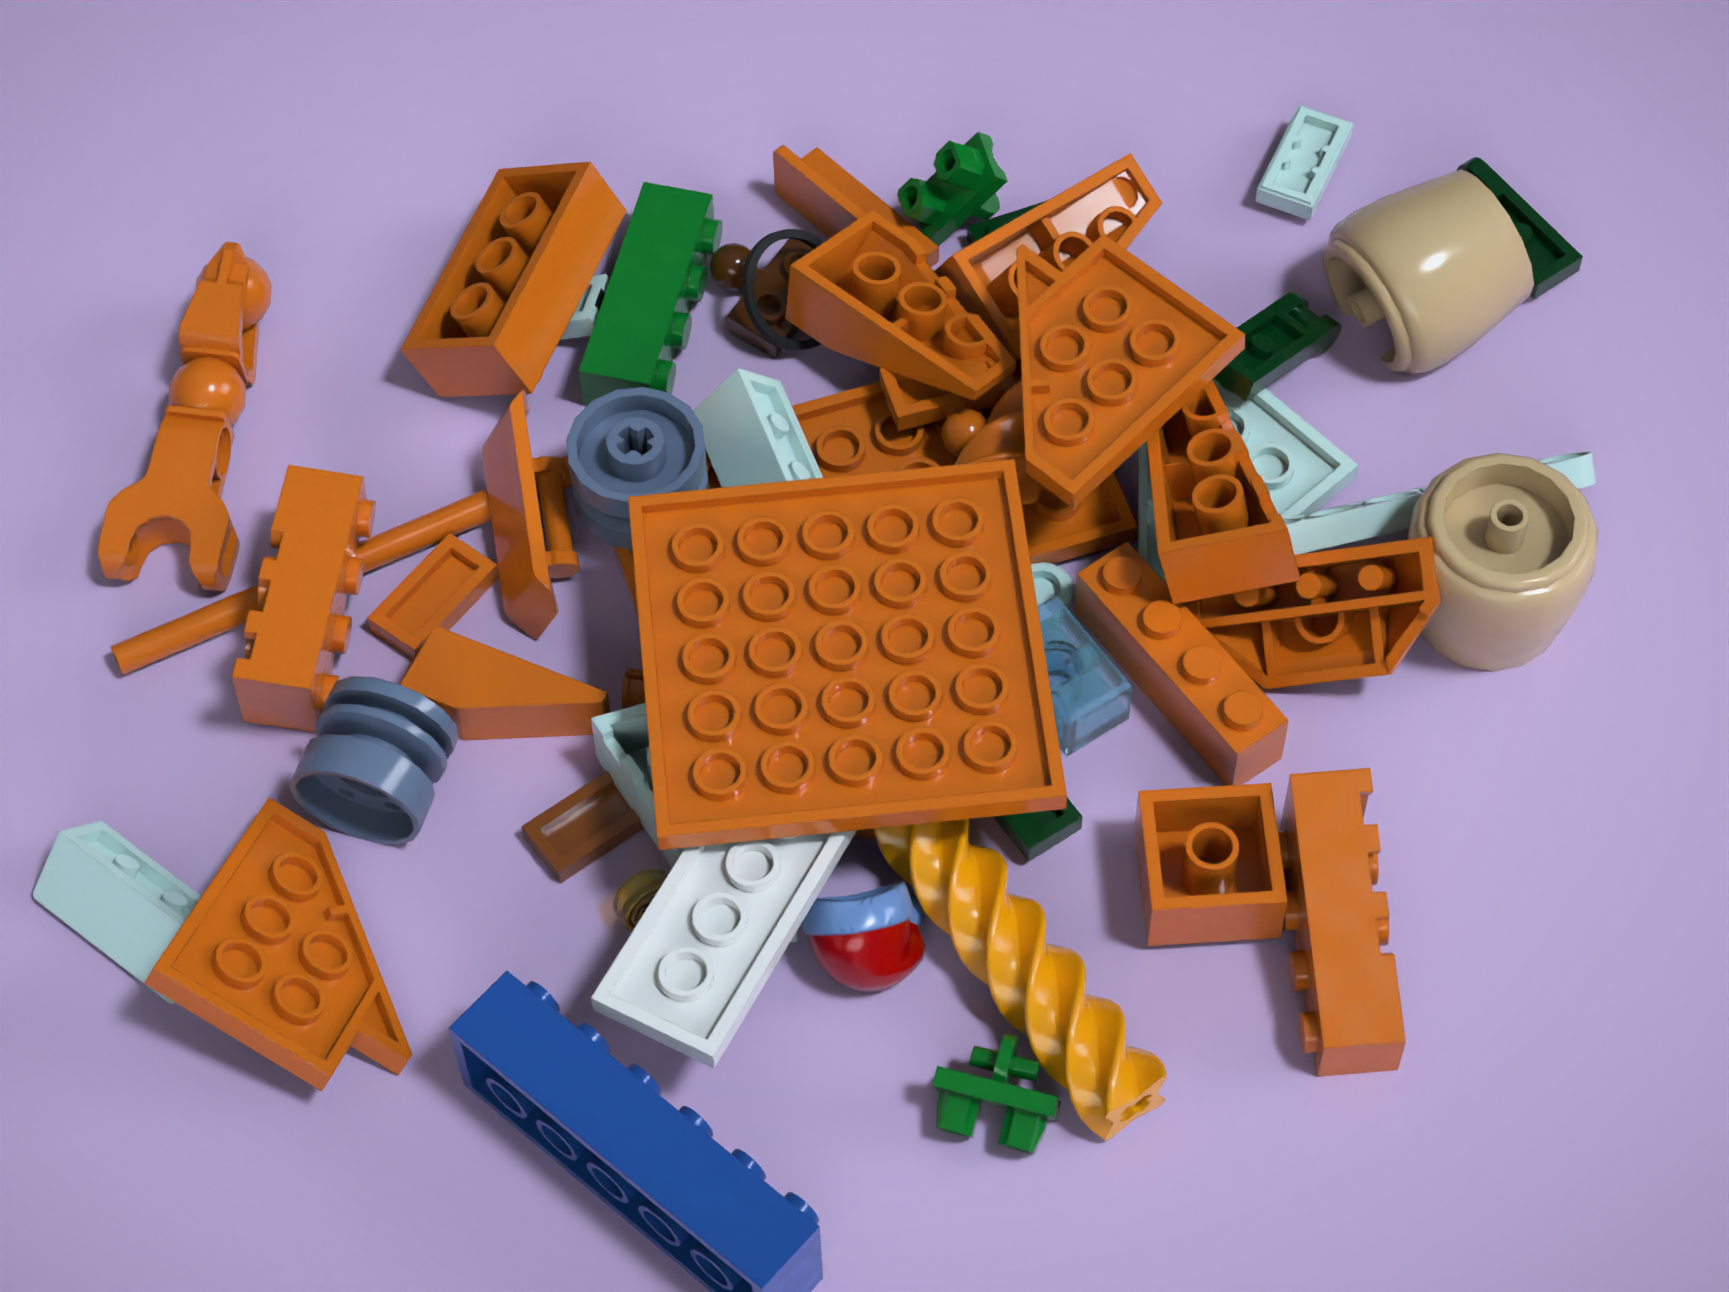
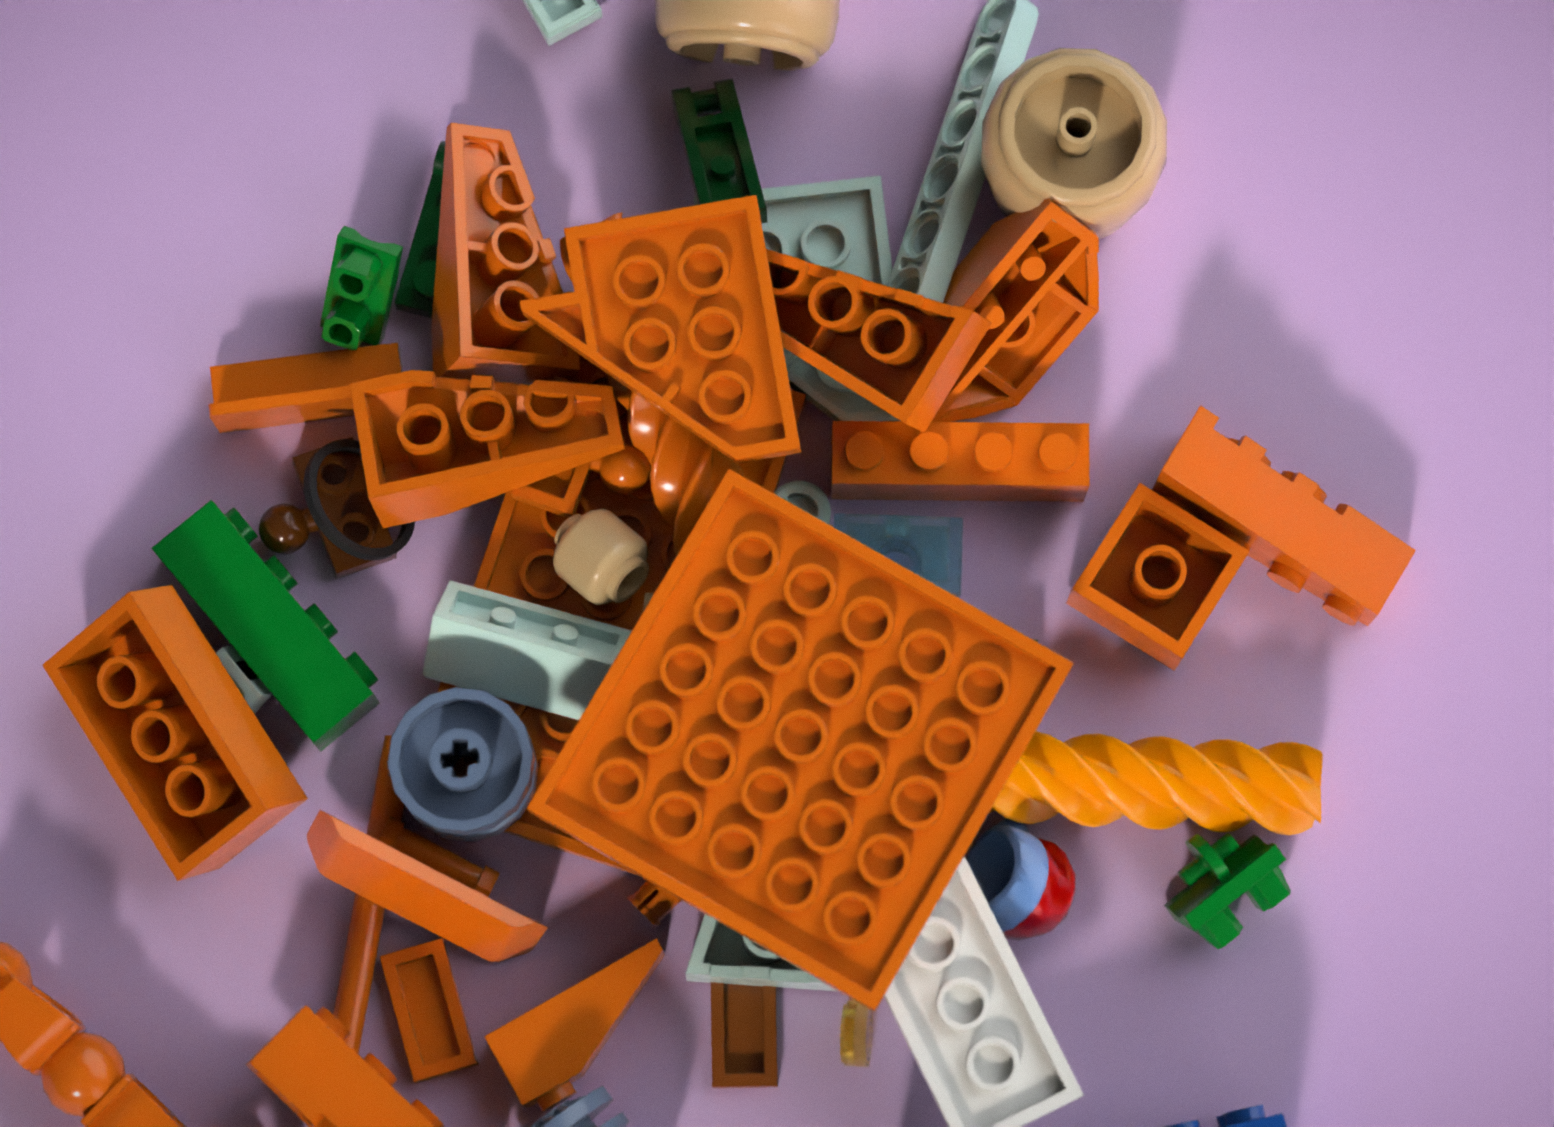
camera: 55 degrees left, 20 degrees up
(880, 444) = (600, 557): none -> tan head

